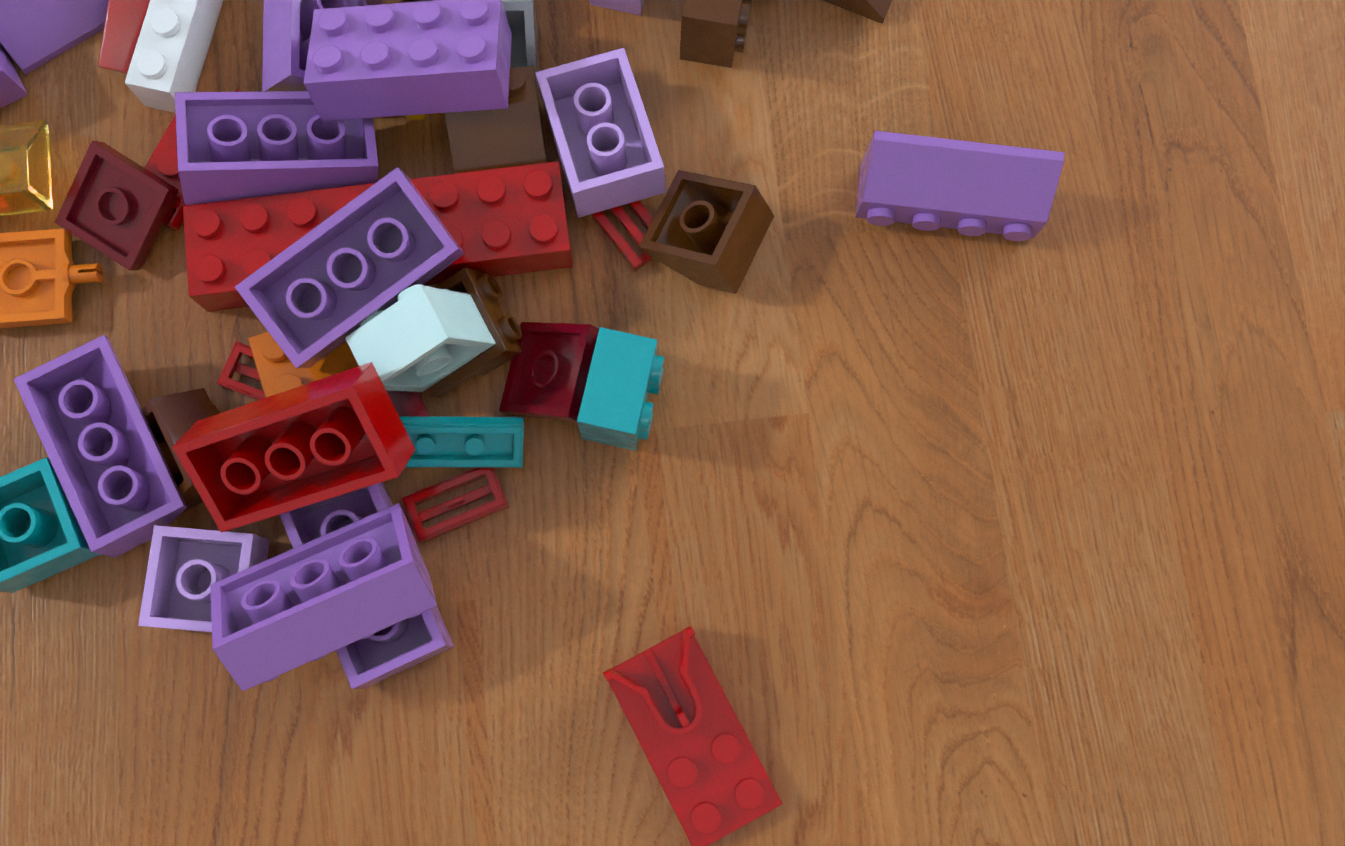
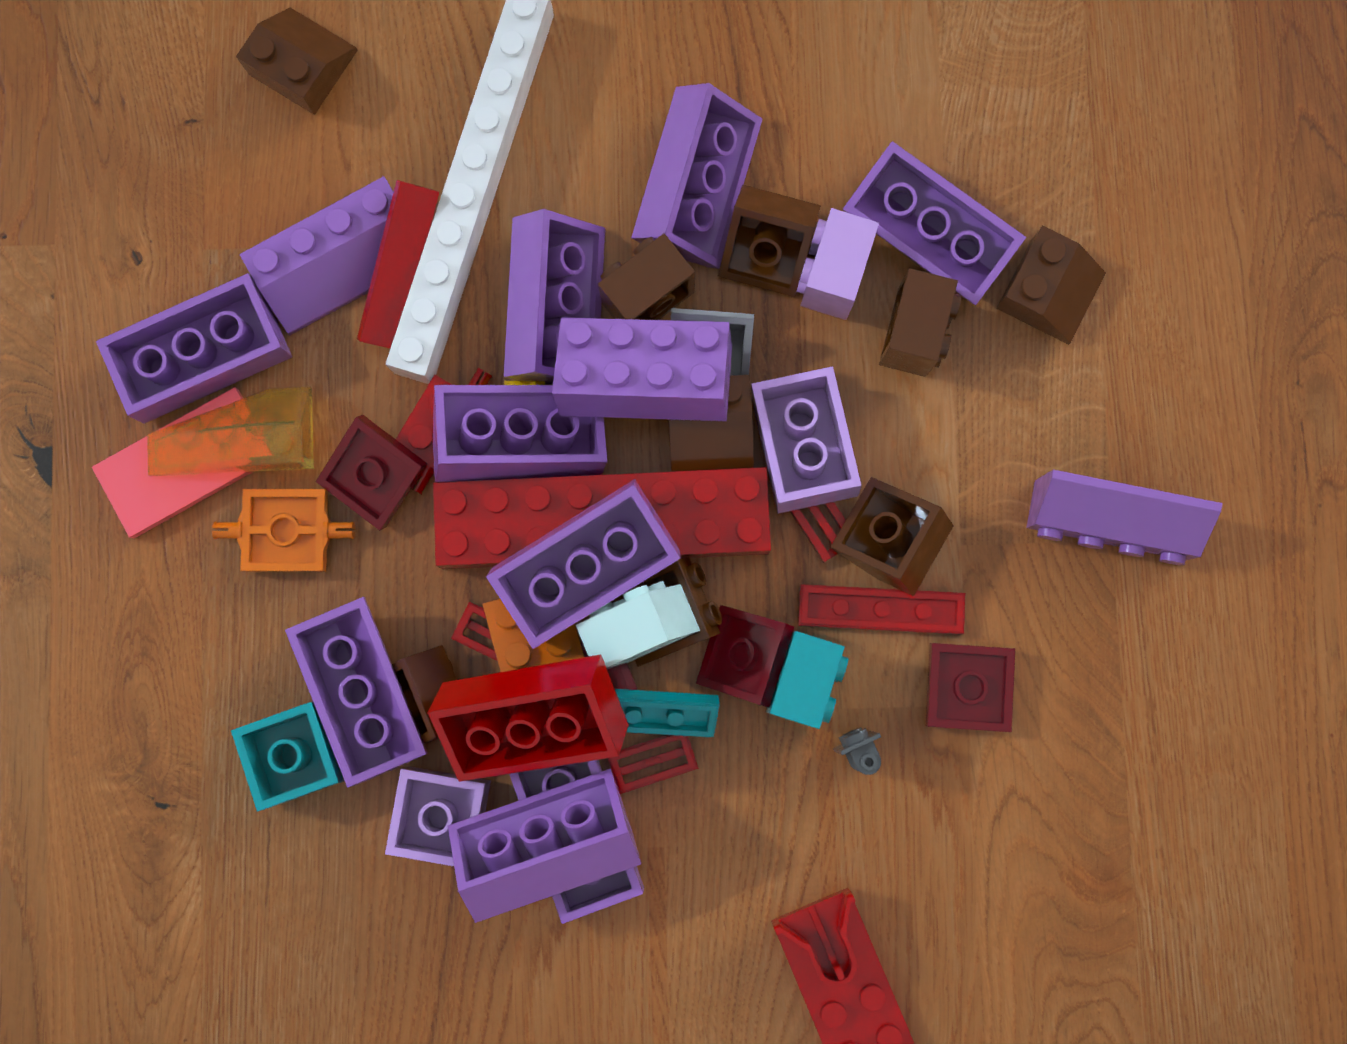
camera: 15 degrees right, 5 degrees up
(687, 462) = (860, 750): none -> dark grey hinge
(705, 314) = (881, 609): none -> red tile
(808, 389) = (970, 687): none -> dark red plate

